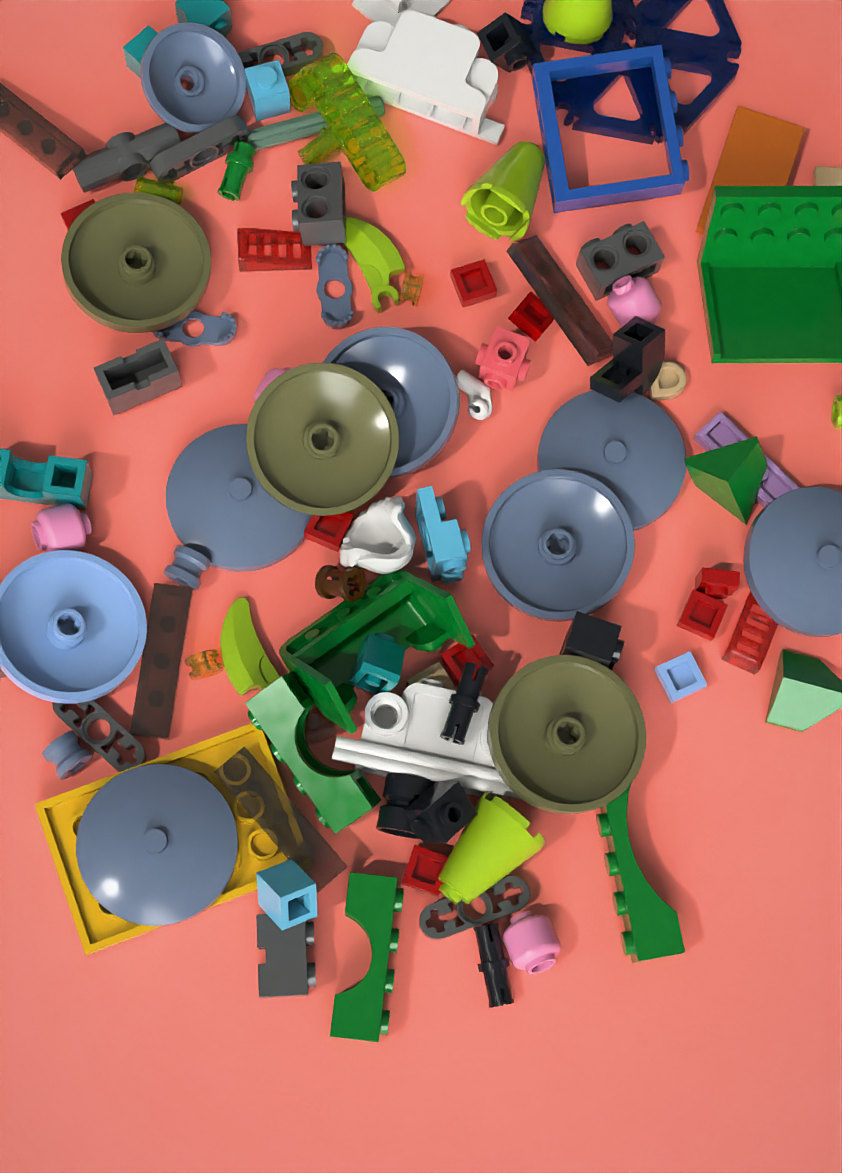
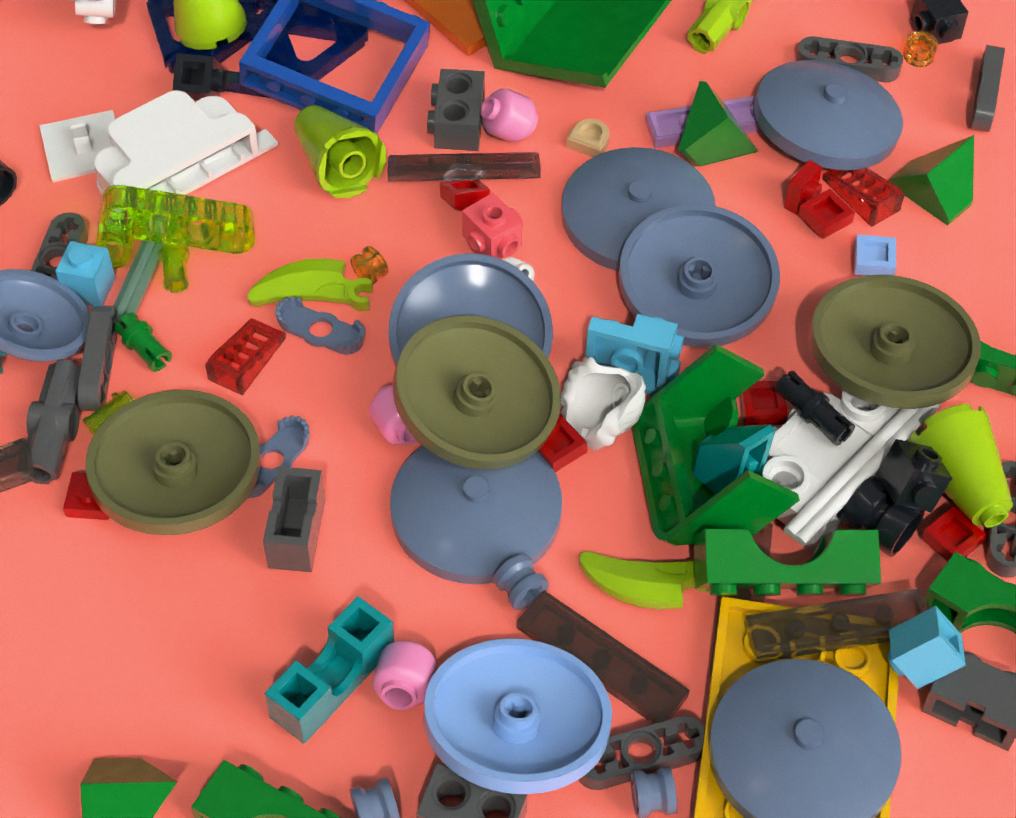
camera: 50 degrees left, 20 degrees down
(204, 664) = (632, 618): clear yellow bush -> none
(320, 203) = (235, 286): dark grey brick -> none
(340, 583) = (624, 458): reddish brown bush -> none
(473, 283) = (399, 220): red plate -> none
(593, 640) = (804, 288): black brick -> none
(635, 361) = (562, 138): black brick -> none

